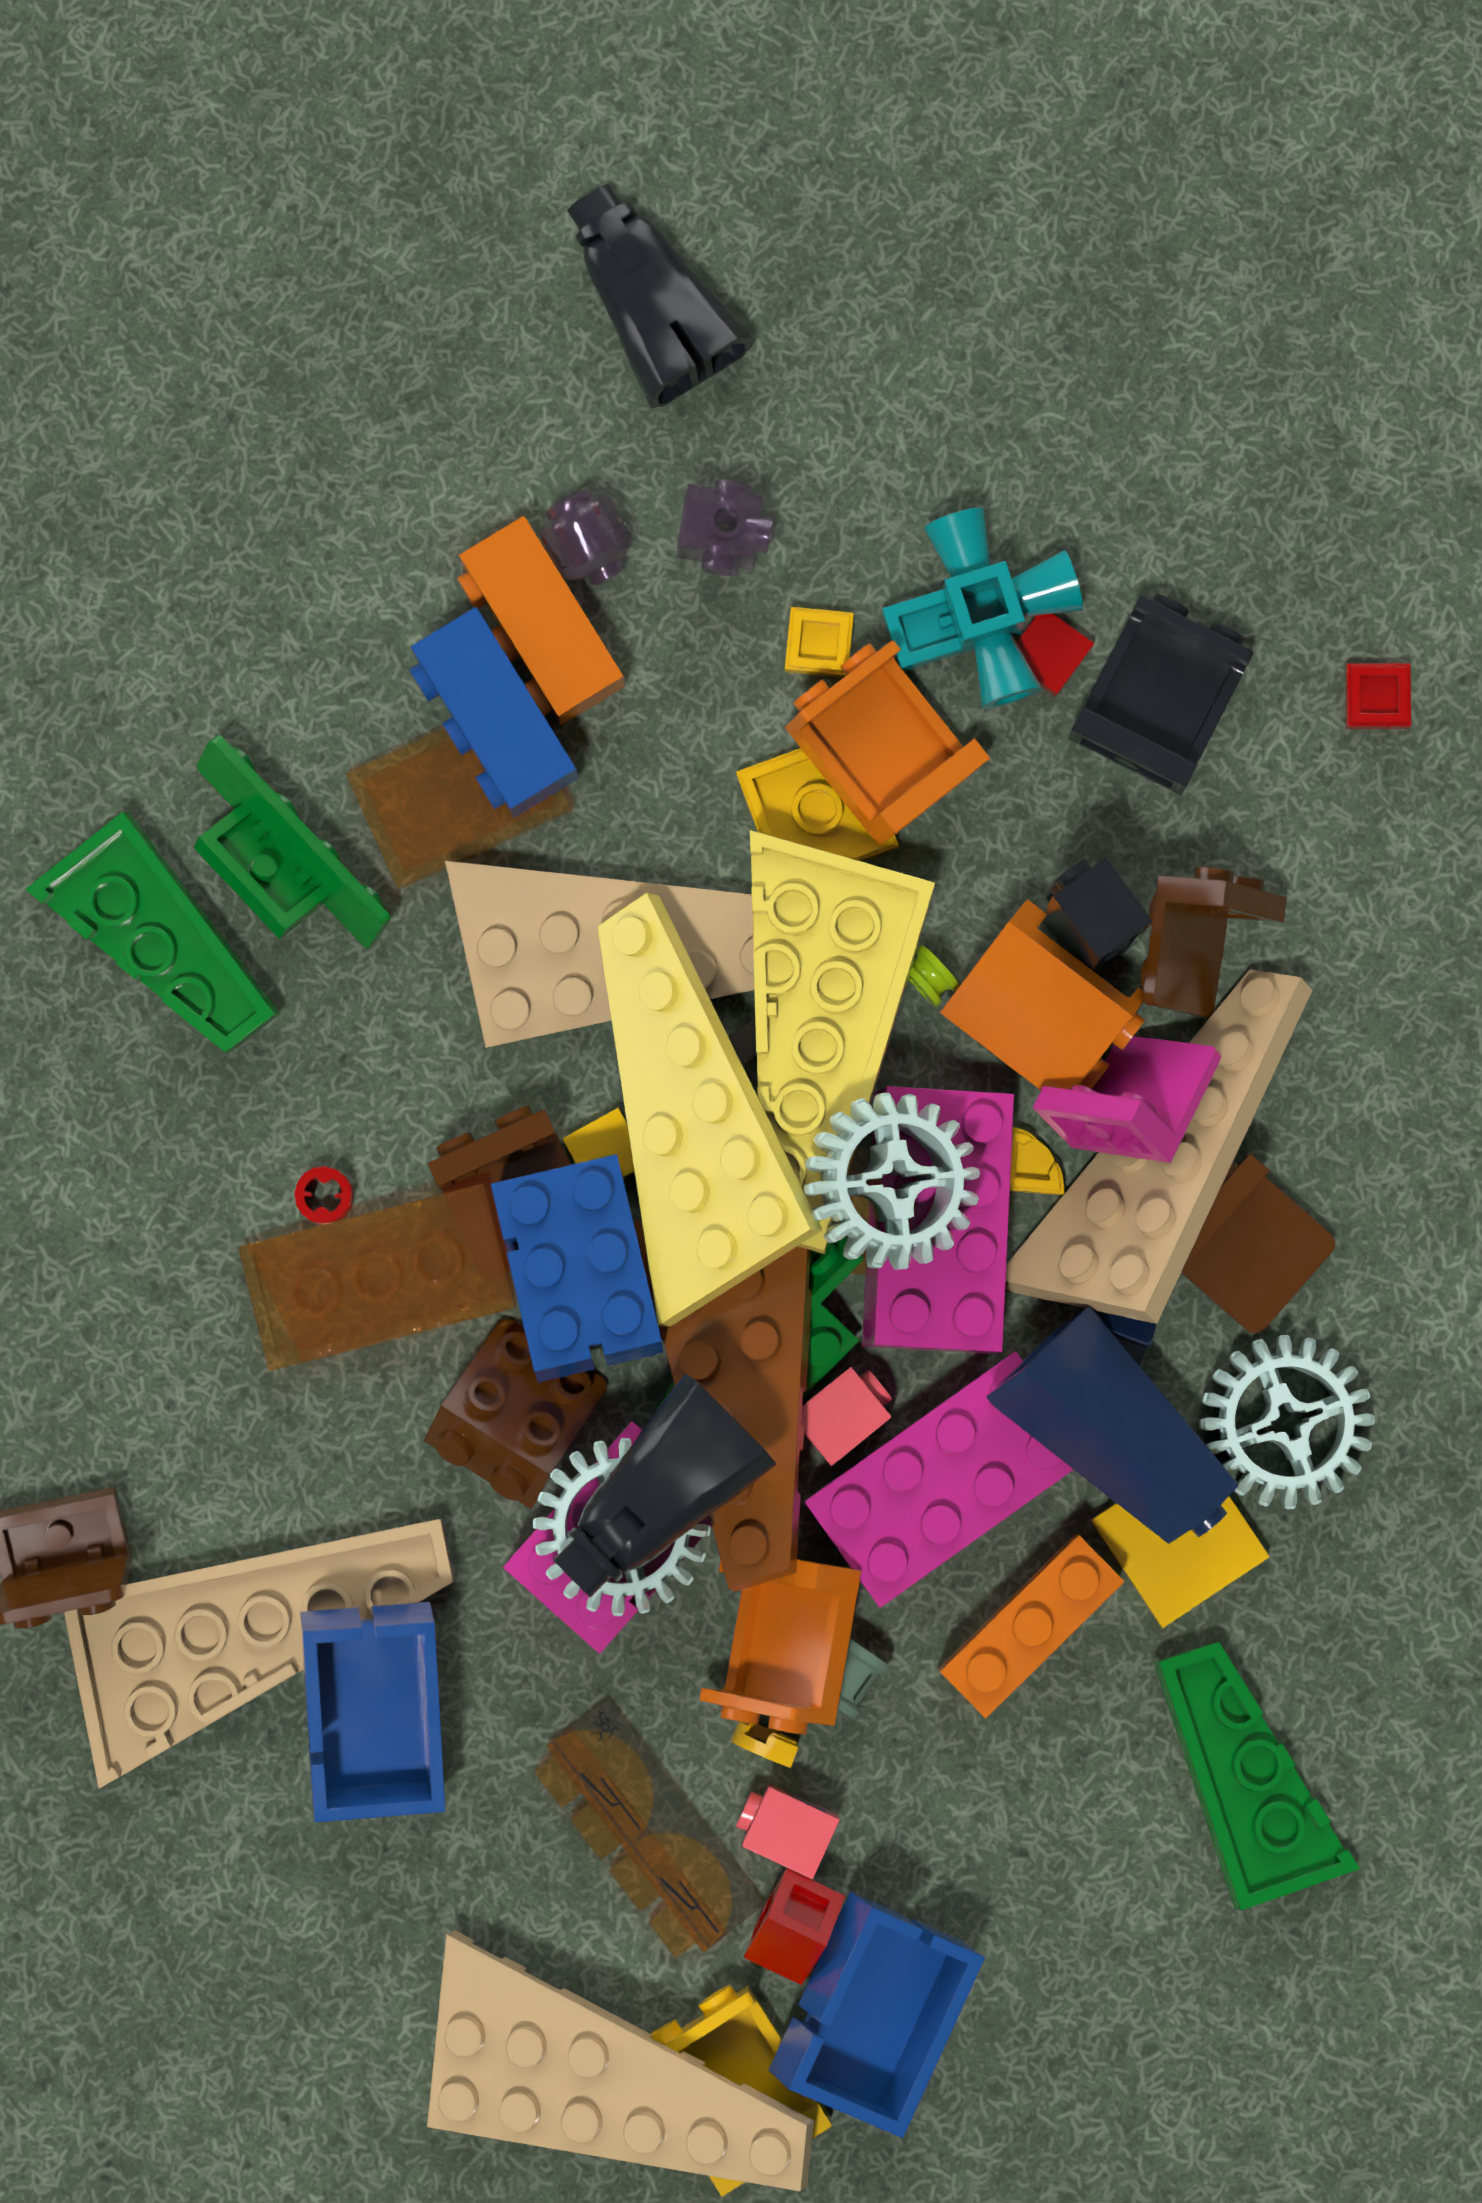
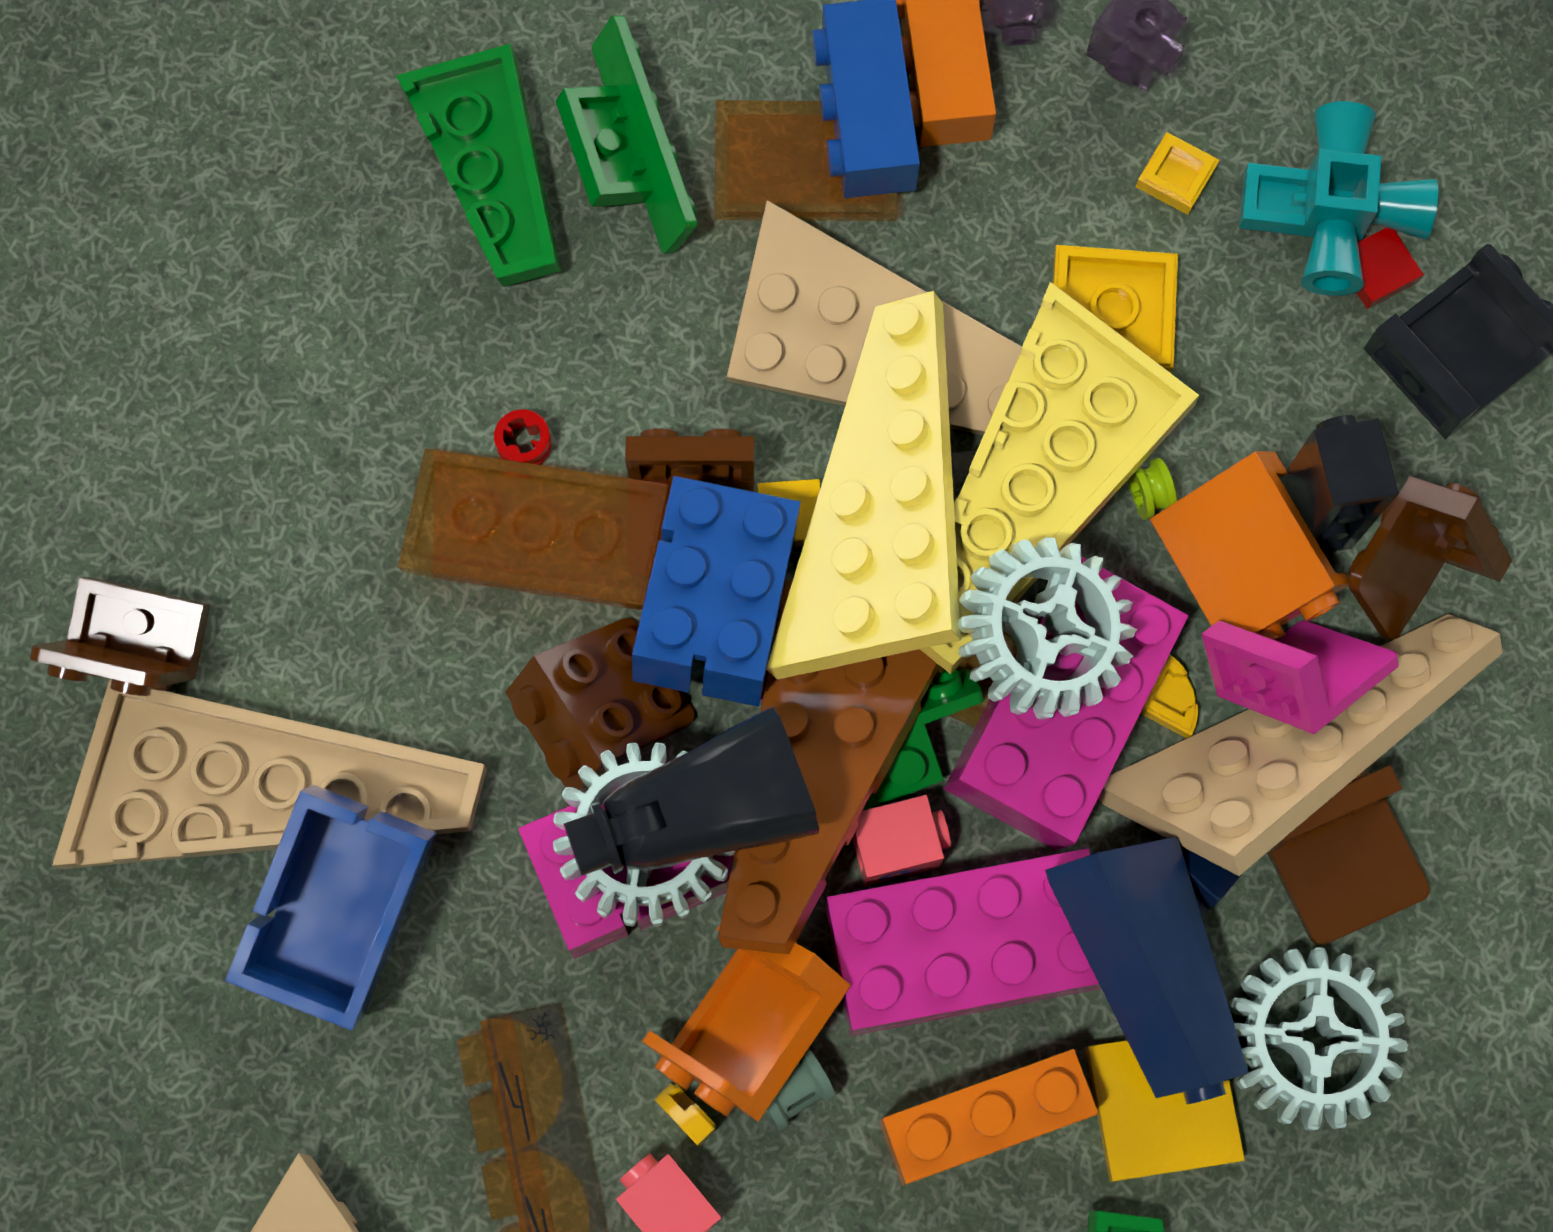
camera: 20 degrees right, 10 degrees down
(881, 743) = (1198, 270): orange panel -> none

